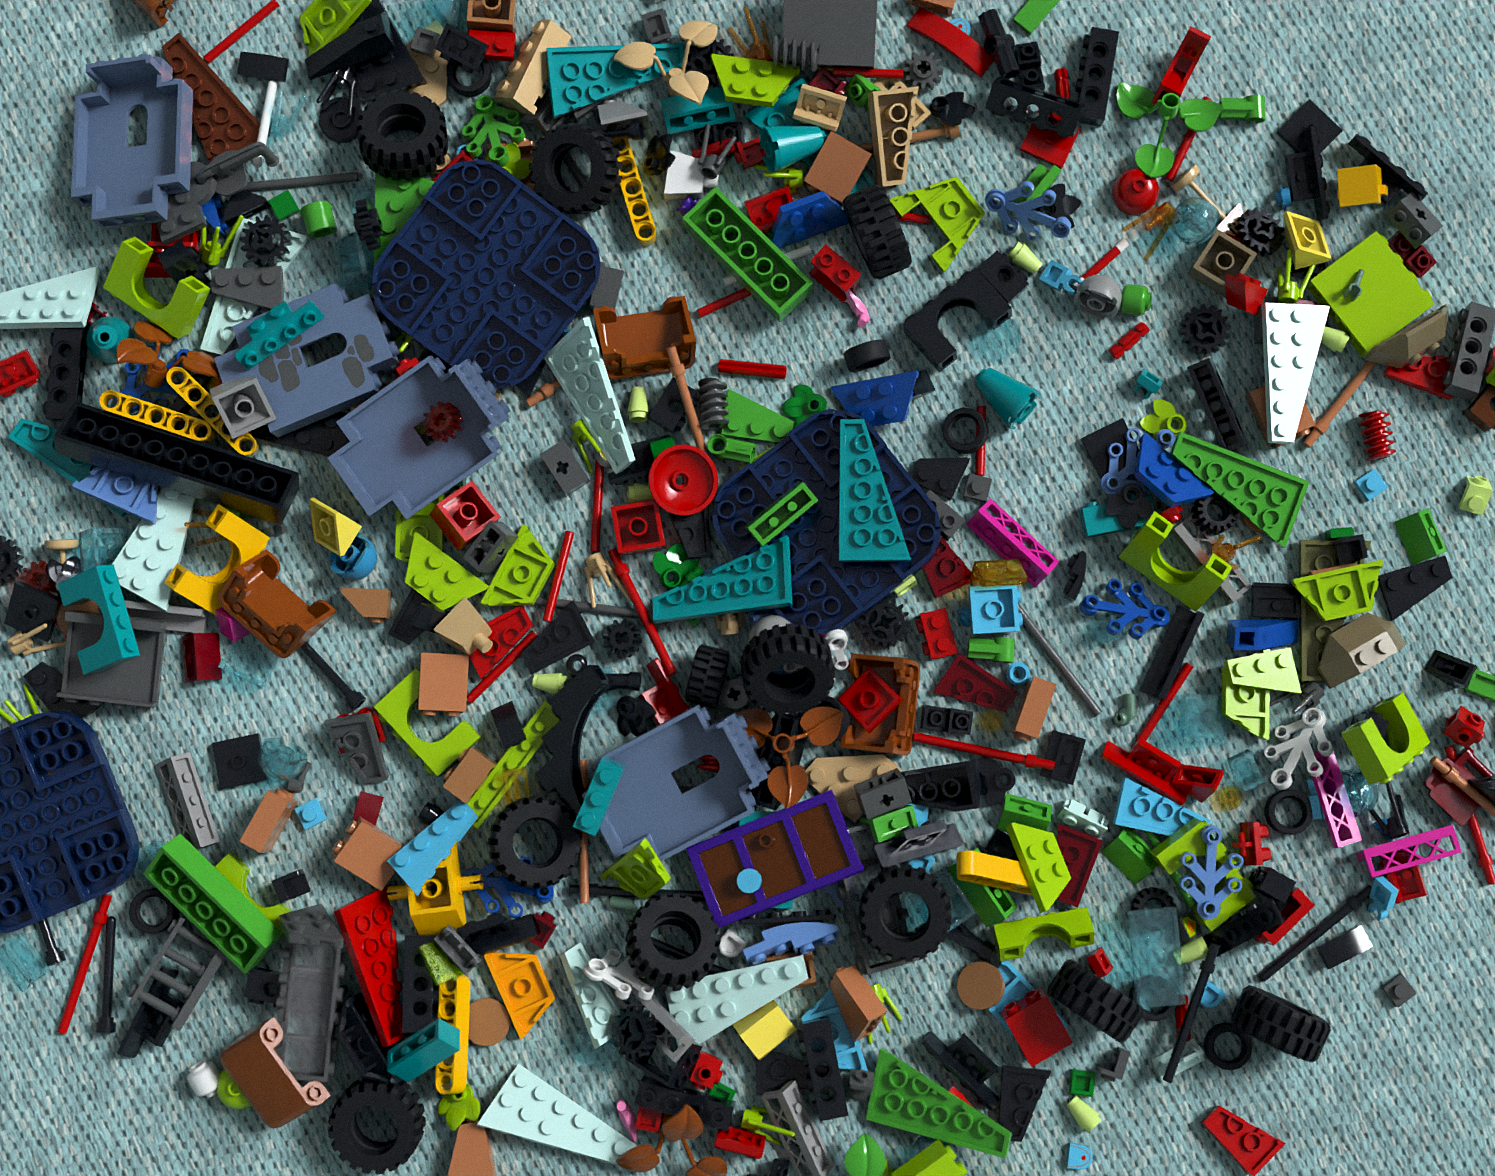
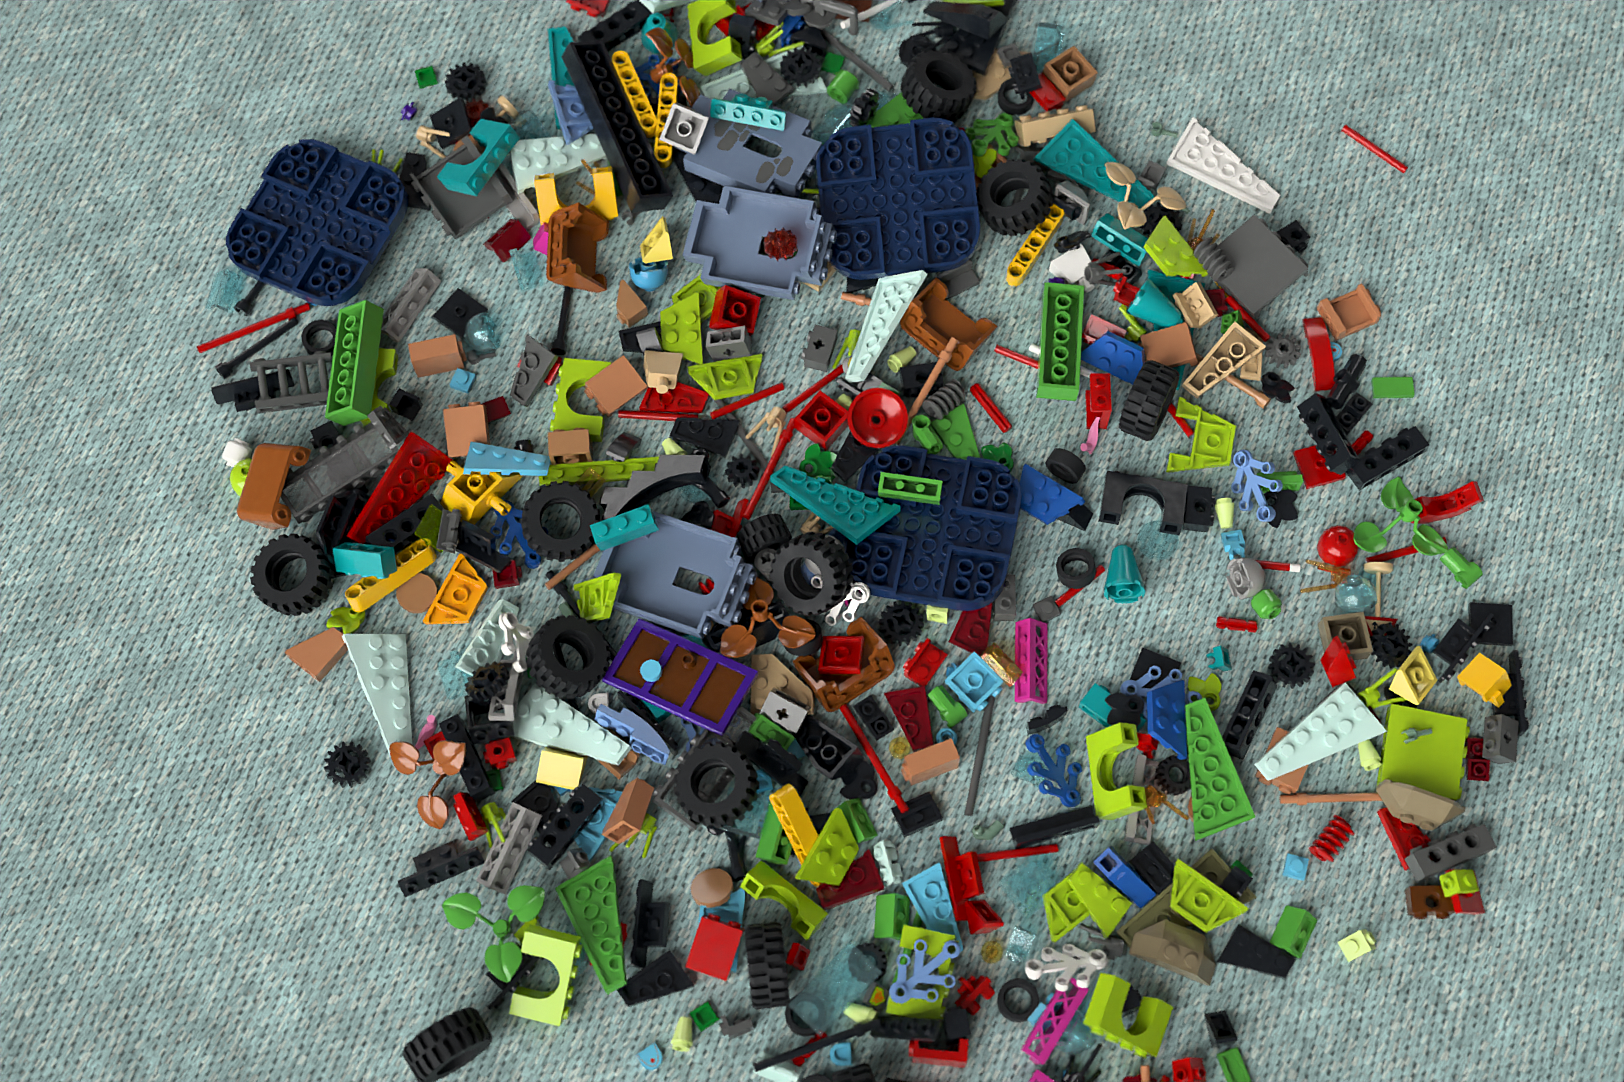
camera: 50 degrees right, 15 degrees down
(866, 513) = (960, 540): teal wing -> none
(940, 474) = (1032, 578): black wing -> none

